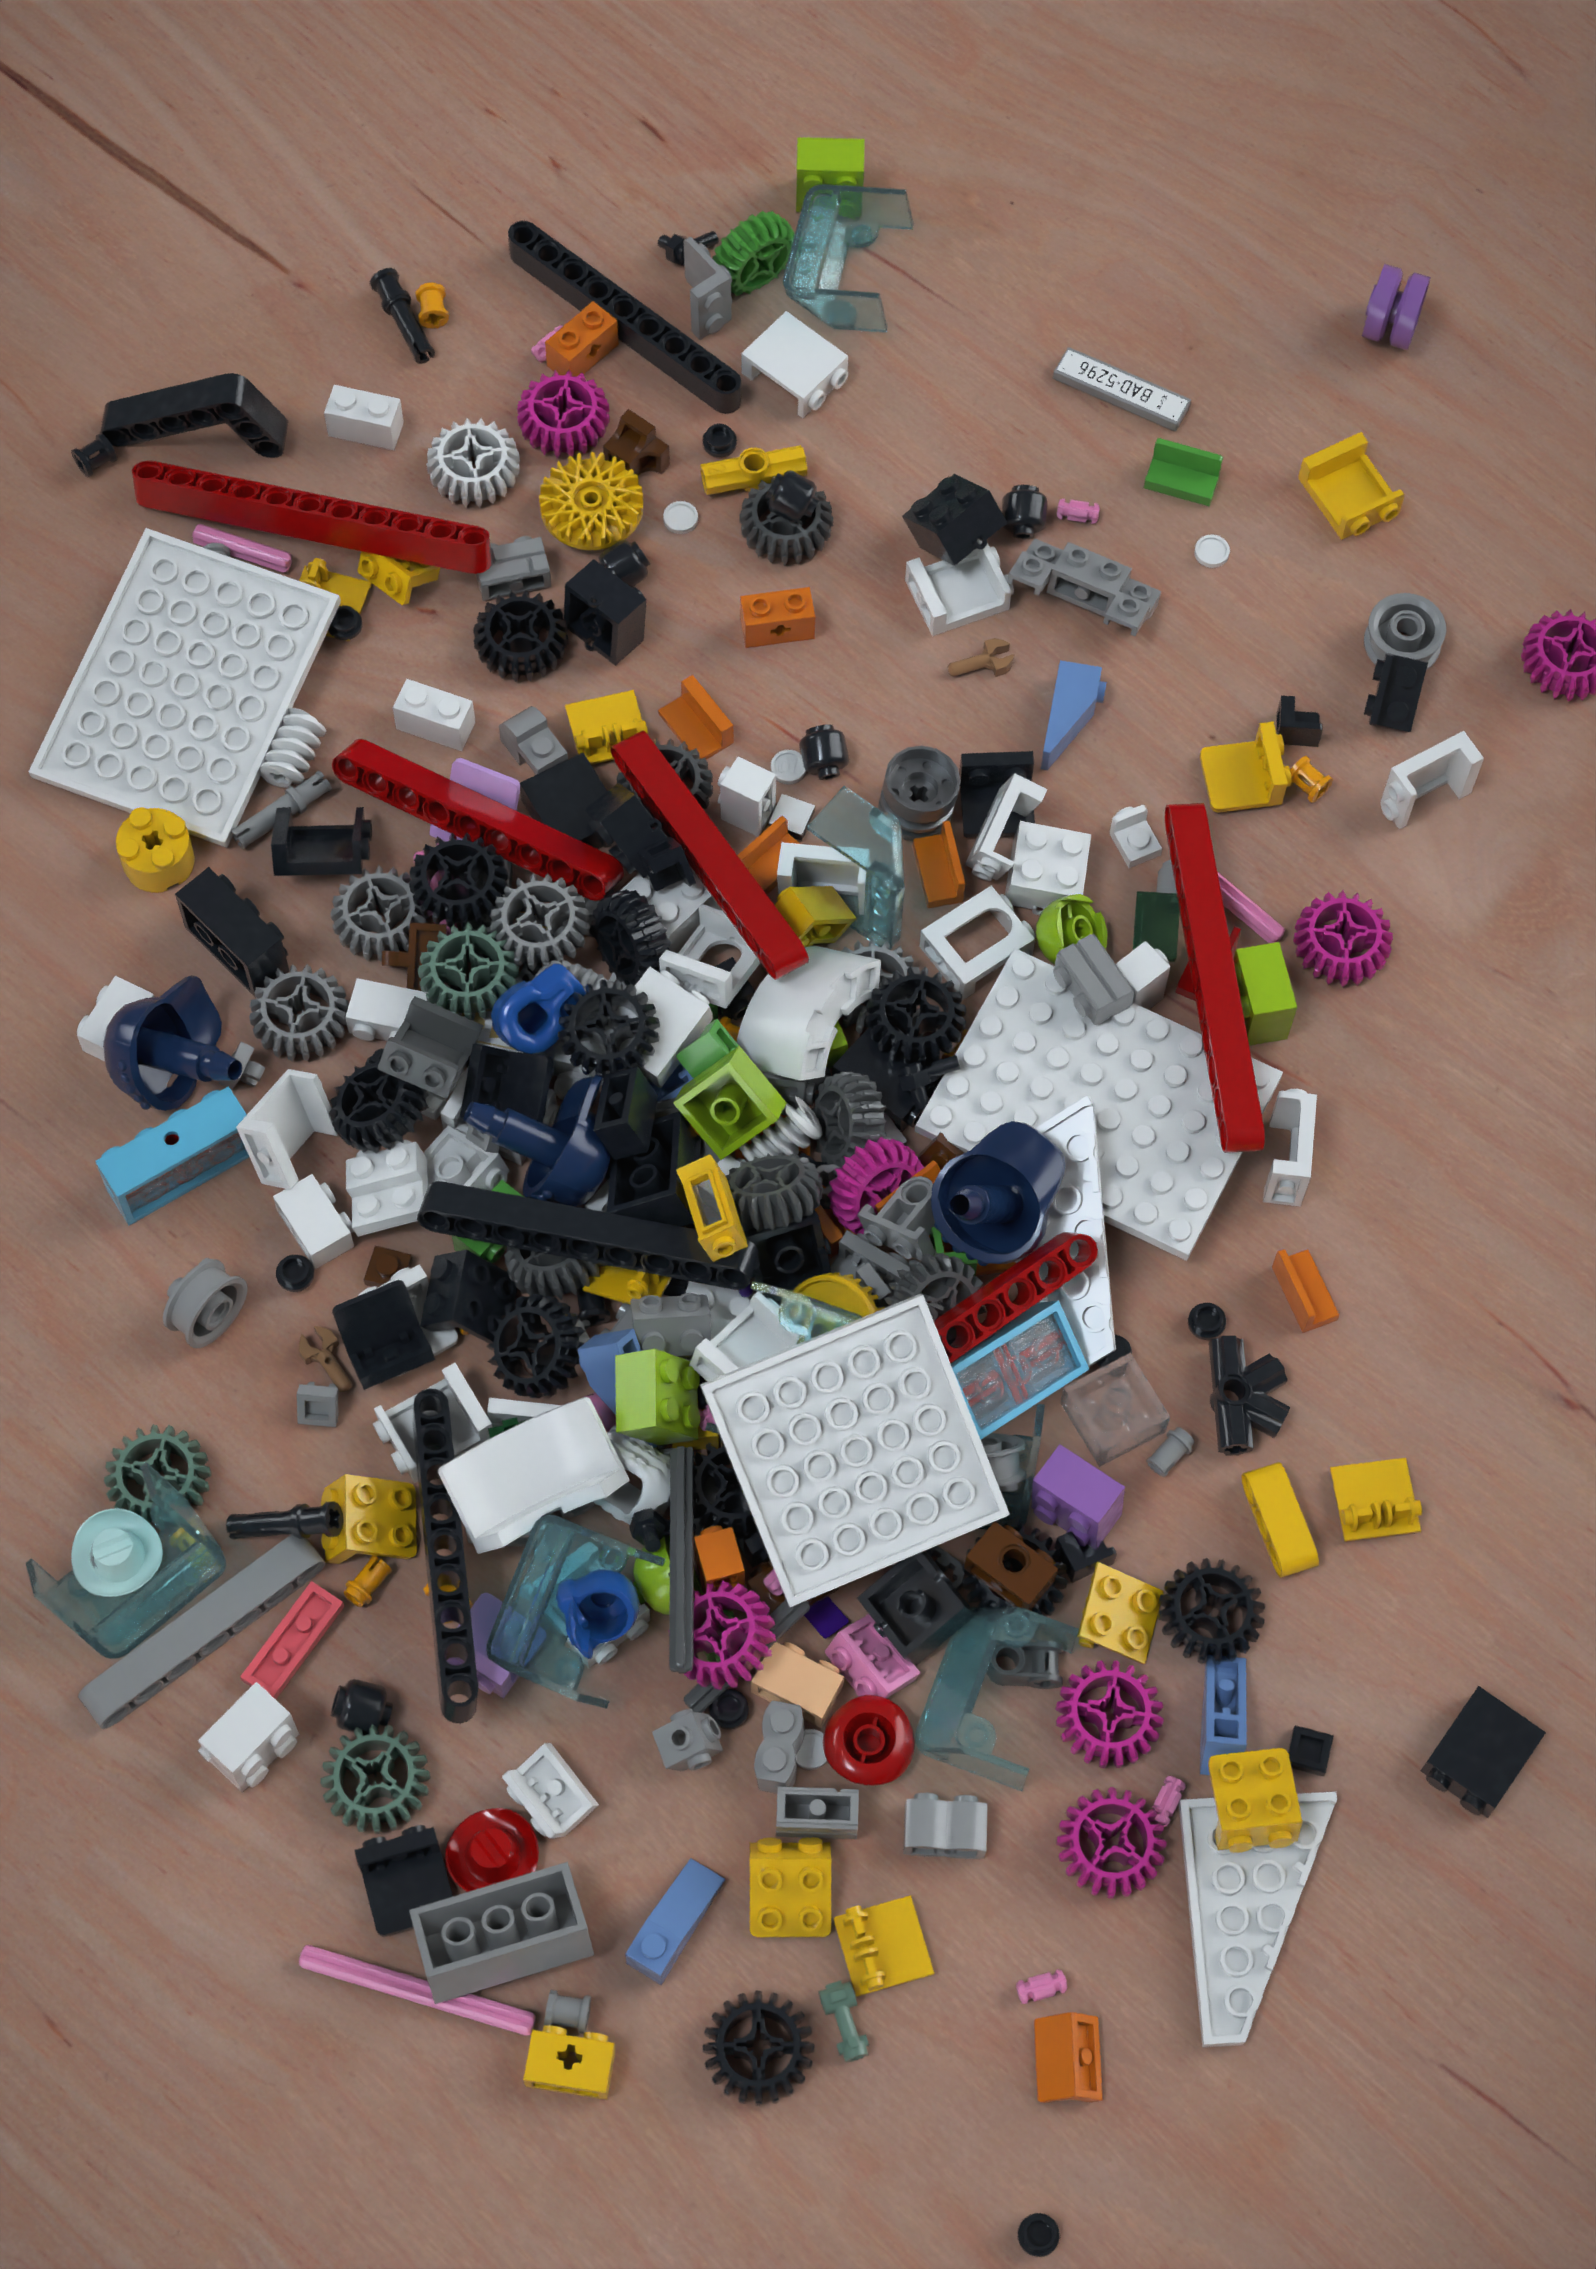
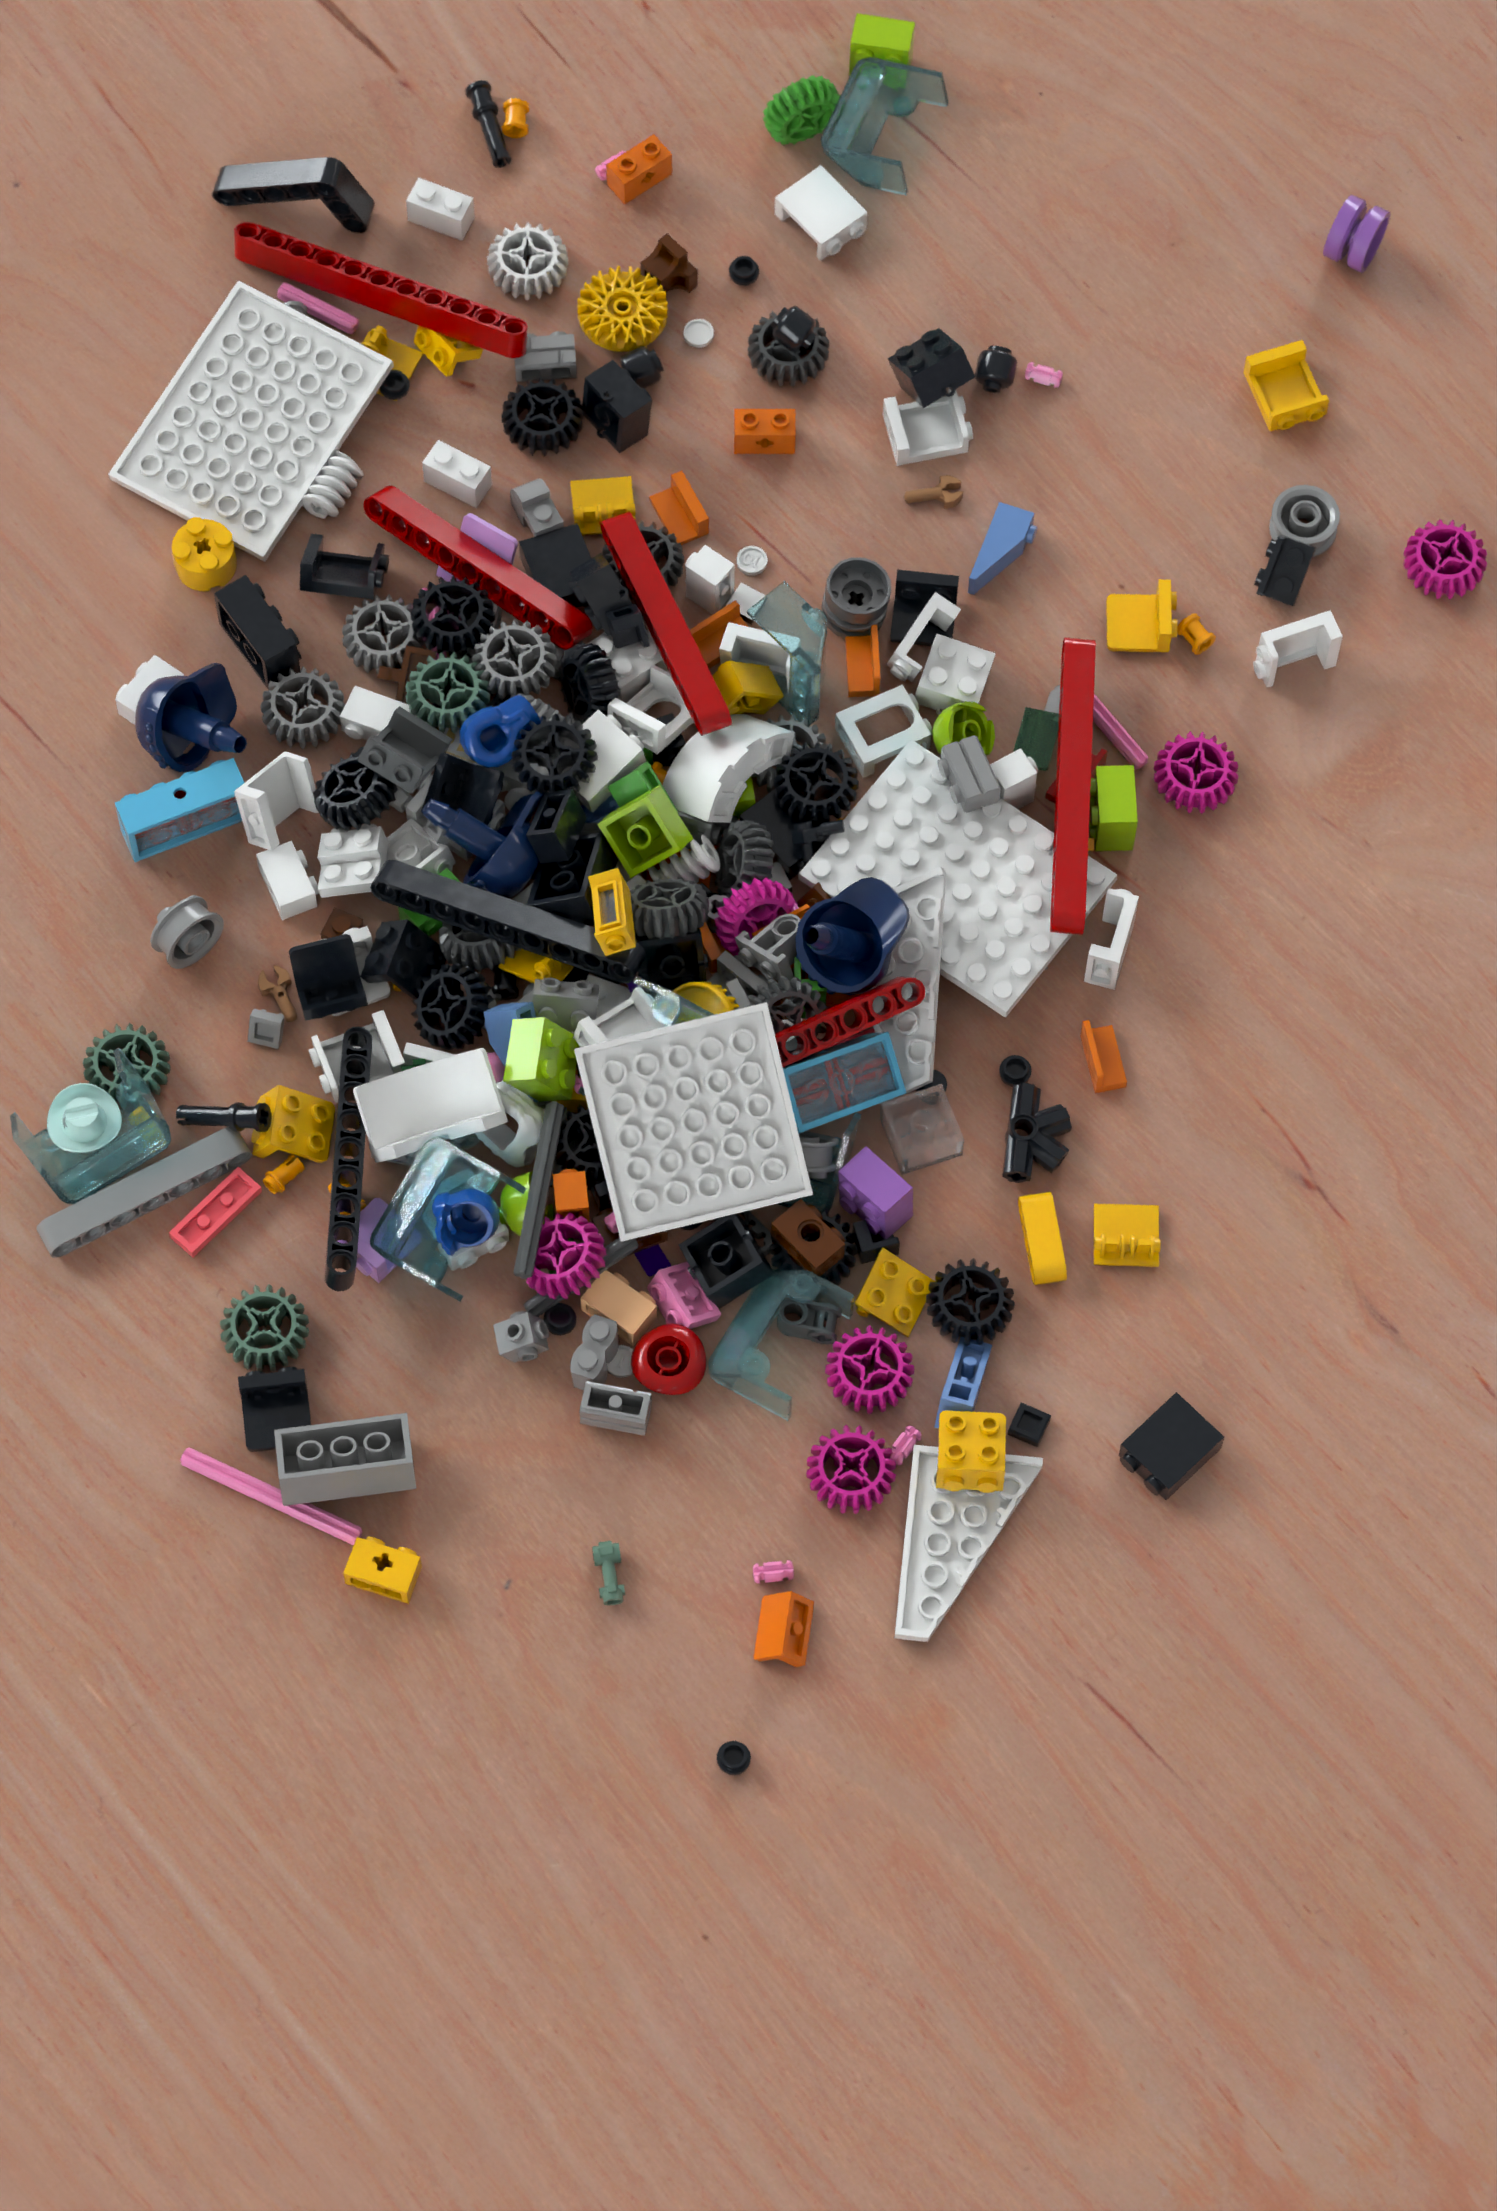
camera: 10 degrees right, 0 degrees up
(106, 454) = (198, 218): black bush -> none
(249, 1738) = (168, 1279): white brick -> none
(250, 1070) = (253, 750): light grey tile -> none
(295, 1273) = (264, 920): black plate -> none
(296, 798) = (328, 528): light grey pin -> none
(360, 1706) = (262, 1269): black head -> none
(491, 1849) = (348, 1395): red hat -> none
(550, 1792) = (403, 1360): white bracket -> none
(568, 2011) = (388, 1529): light grey bush -> none
(580, 424) = (623, 240): dark pink gear -> none
(639, 330) = (684, 163): black beam -> none
(649, 1527) = (518, 1163): black piece -> none
(673, 1921) = (484, 1476): medium blue slope -> none
(675, 246) = (742, 98): black piece -> none
(710, 292) = (758, 144): light grey bracket -> none
(737, 473) = (751, 300): yellow piece -> none
(739, 2048) = (547, 1585): black gear -> none
(790, 1888) = (583, 1464): yellow bracket -> none
(824, 751) = (783, 551): black head -> none
(883, 1945) = (651, 1520): yellow hinge -> none
(945, 1827) = (718, 1436): light grey brick -> none
(1087, 582) = (1037, 437): light grey bracket -> none
(1122, 389) = (1103, 273): tile -> none
(1134, 836) = (1035, 660): white bracket -> none
(1170, 1451) = (963, 1170): light grey pin -> none
(1183, 472) = (1142, 354): bright green panel -> none
(1212, 551) = (1154, 426): white piece -> none
(1297, 726) = (1194, 587): black panel -> none

